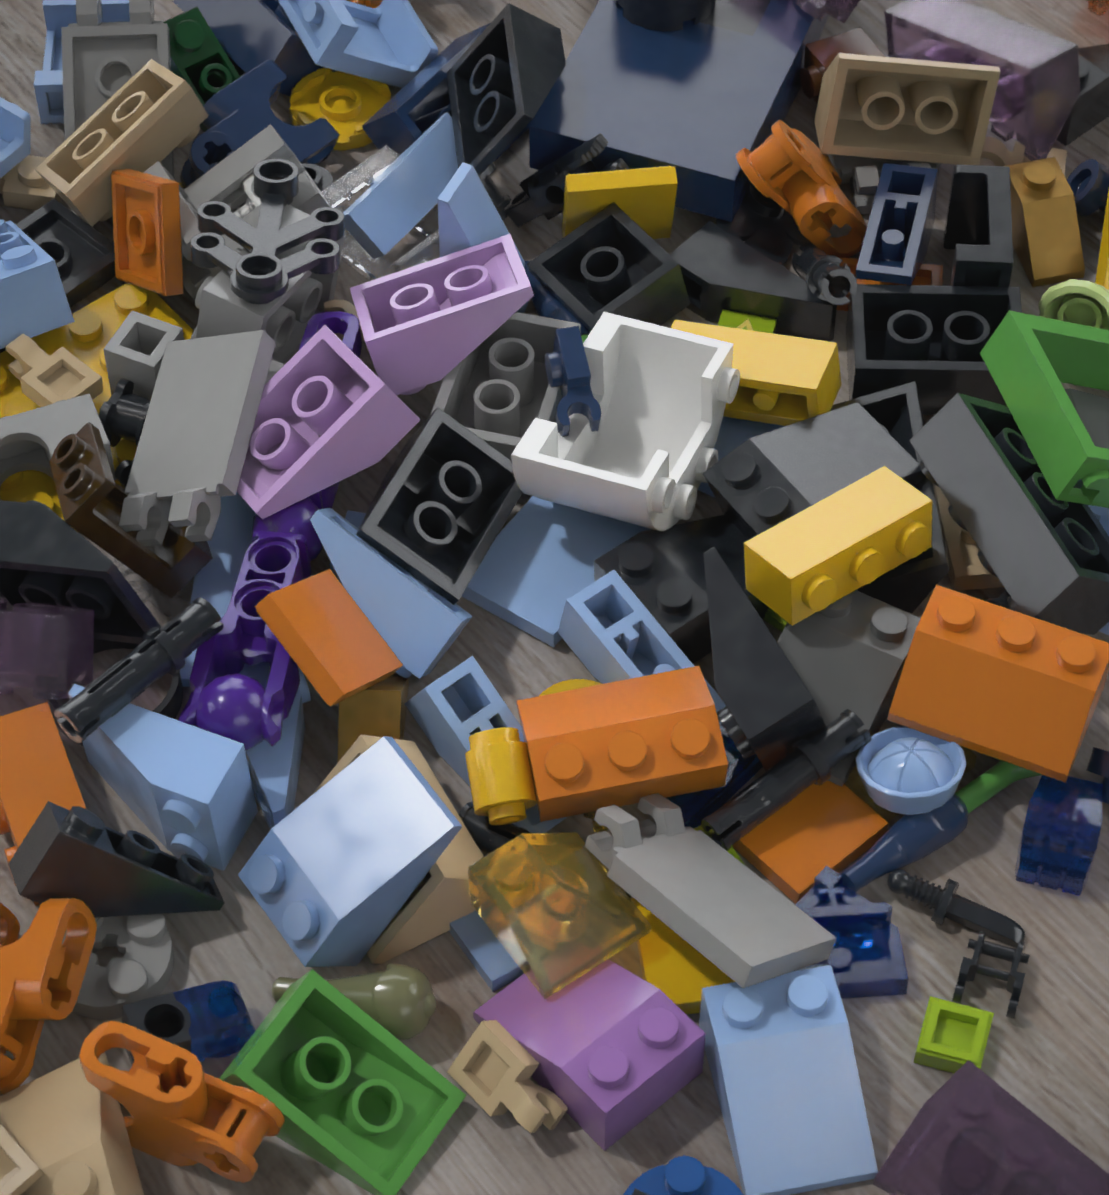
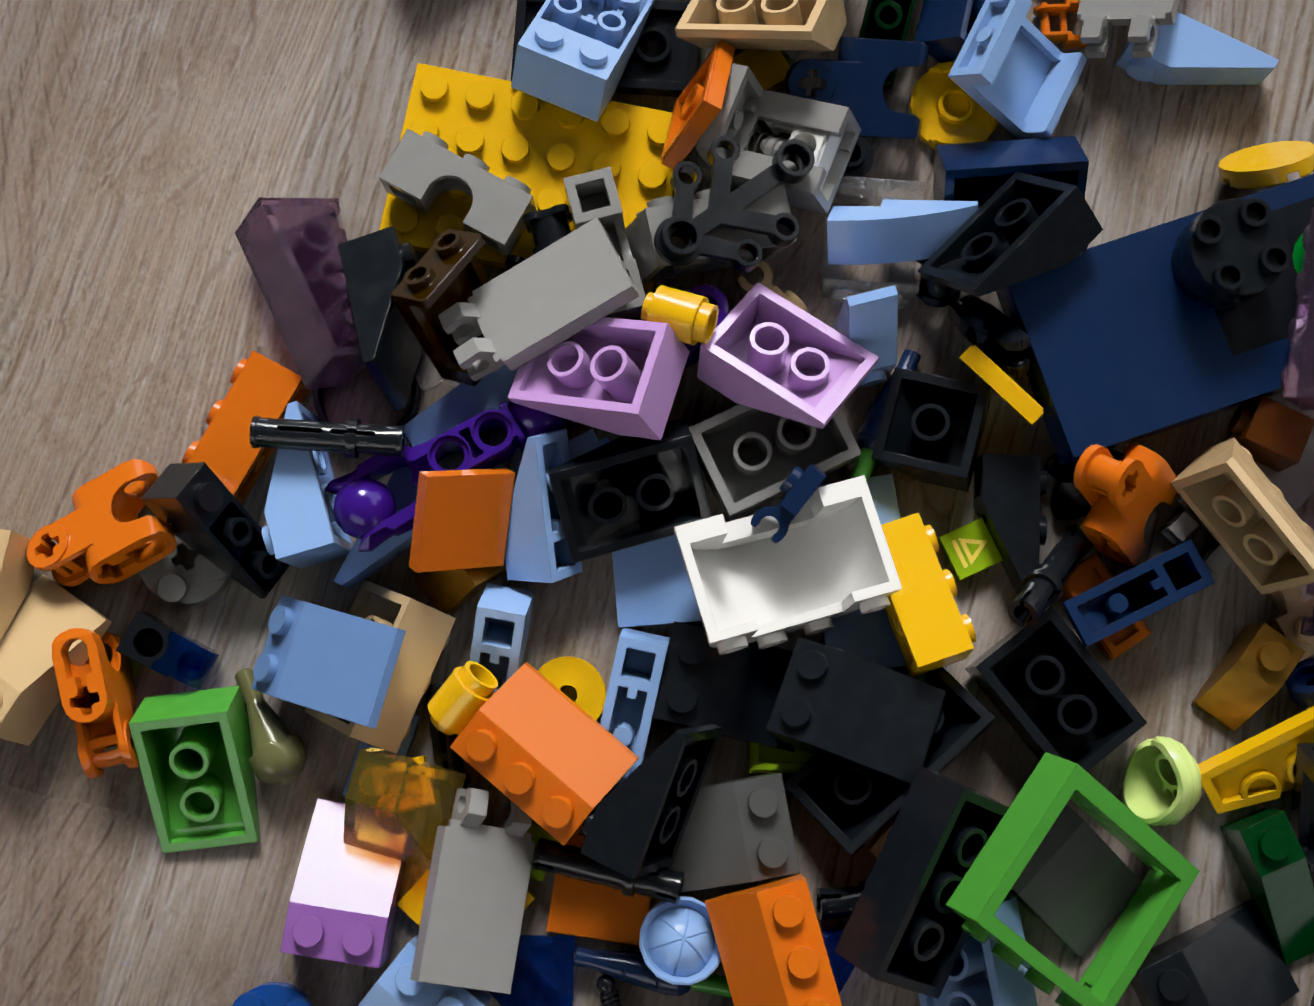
camera: 50 degrees right, 30 degrees up
(51, 377) = (542, 155): tan plate -> none
(338, 314) = (686, 313): none -> yellow brick
(498, 1075) = (279, 857): tan plate -> none
(838, 545) = (797, 784): yellow brick -> none
(980, 226) = (1212, 642): black panel -> none

